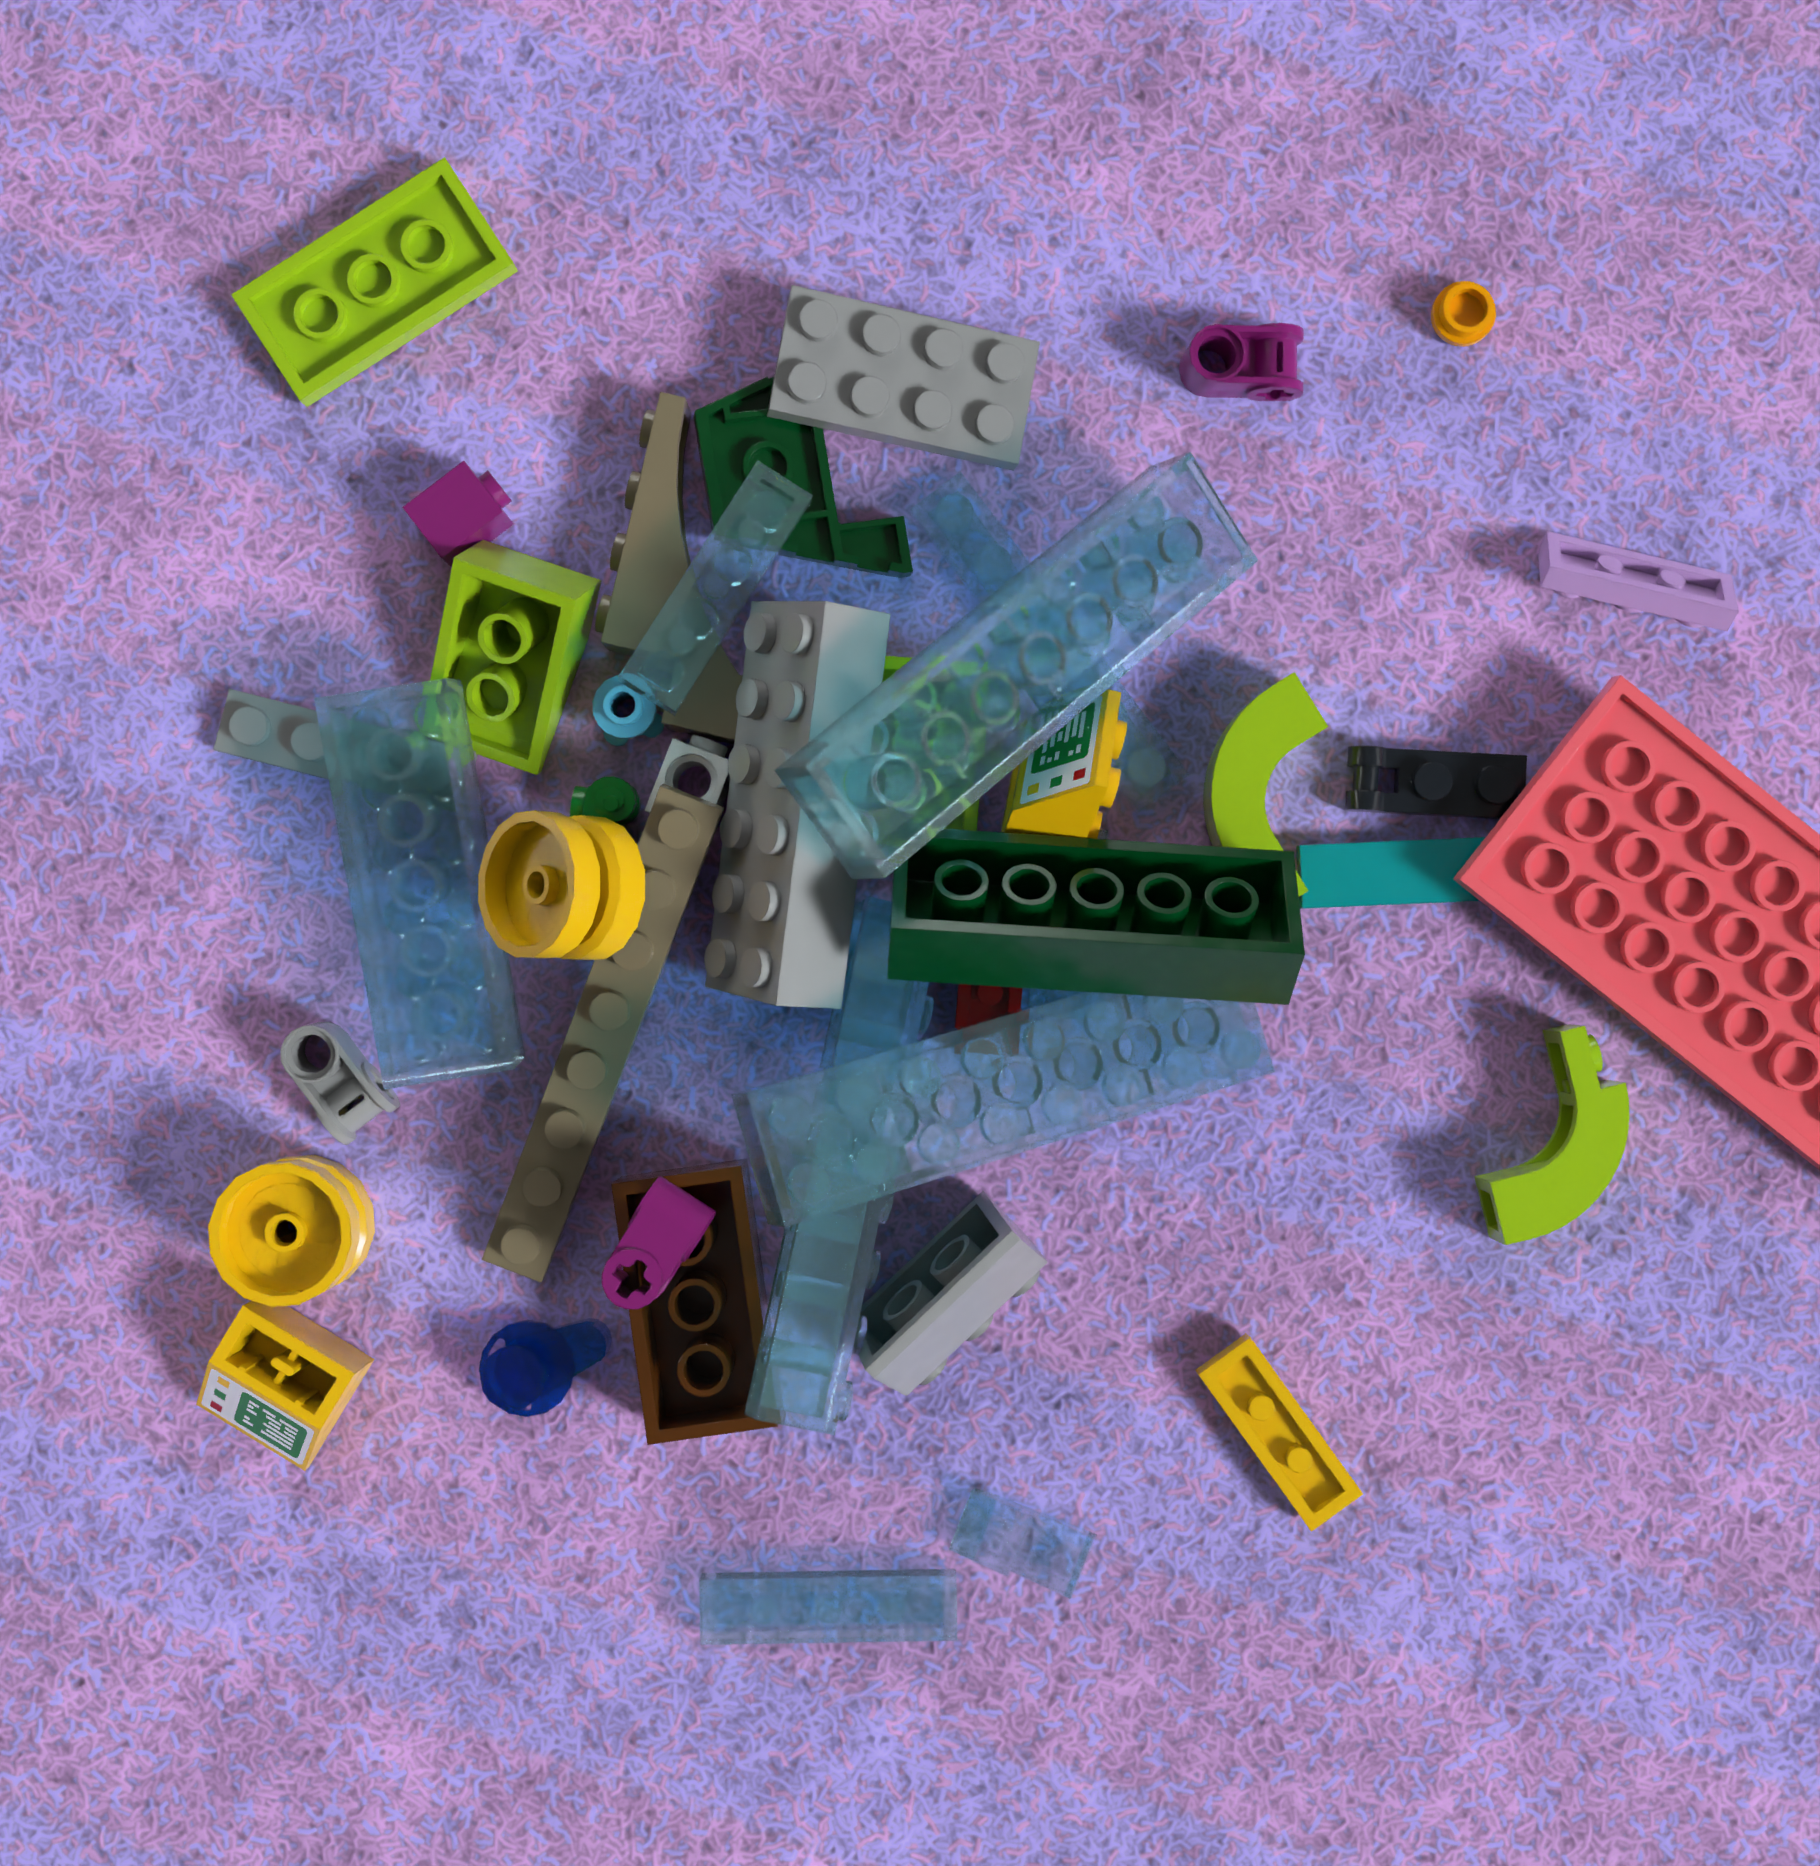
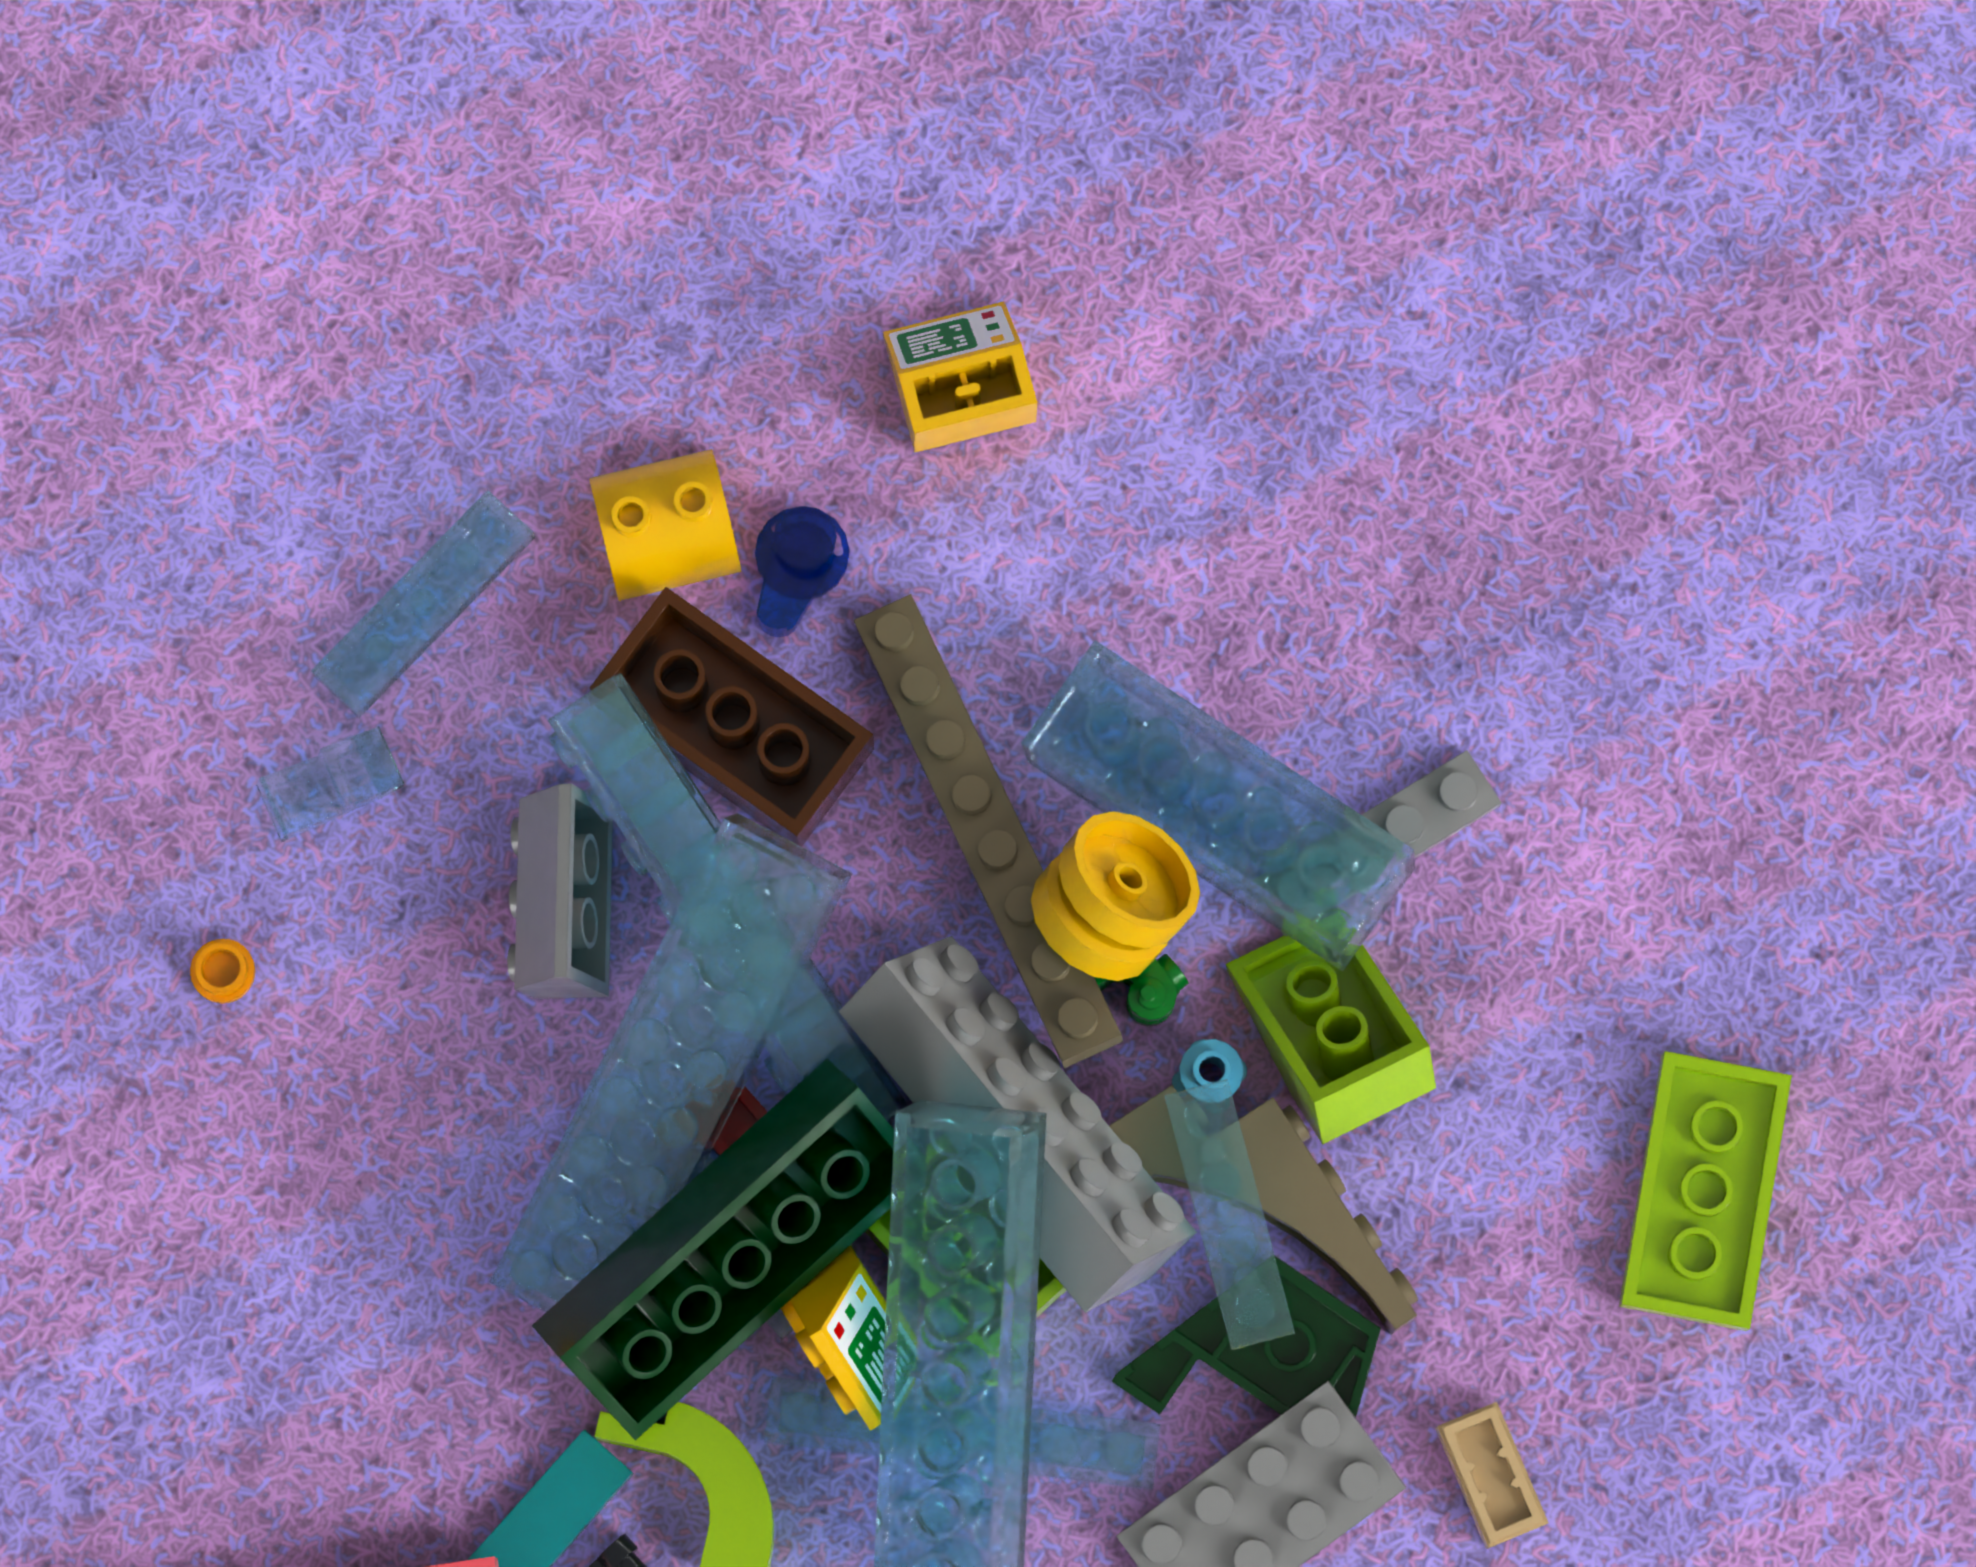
camera: 130 degrees right, 10 degrees down
(283, 1265) = (1062, 446): yellow wheel -> none
(339, 1083) = (1135, 614): light grey piece -> none
(460, 511) = (1469, 1089): magenta brick -> none
(601, 1488) = (665, 524): none -> yellow brick
(661, 1236) = (802, 732): magenta piece -> none
(700, 753) = (1125, 1096): white brick -> none
(723, 245) = (1491, 1475): none -> tan plate
(1230, 1484) = (222, 971): none -> light orange plate
(1279, 1432) = (226, 1041): yellow plate -> none
(1578, 1157) = (200, 1442): lime arch -> none

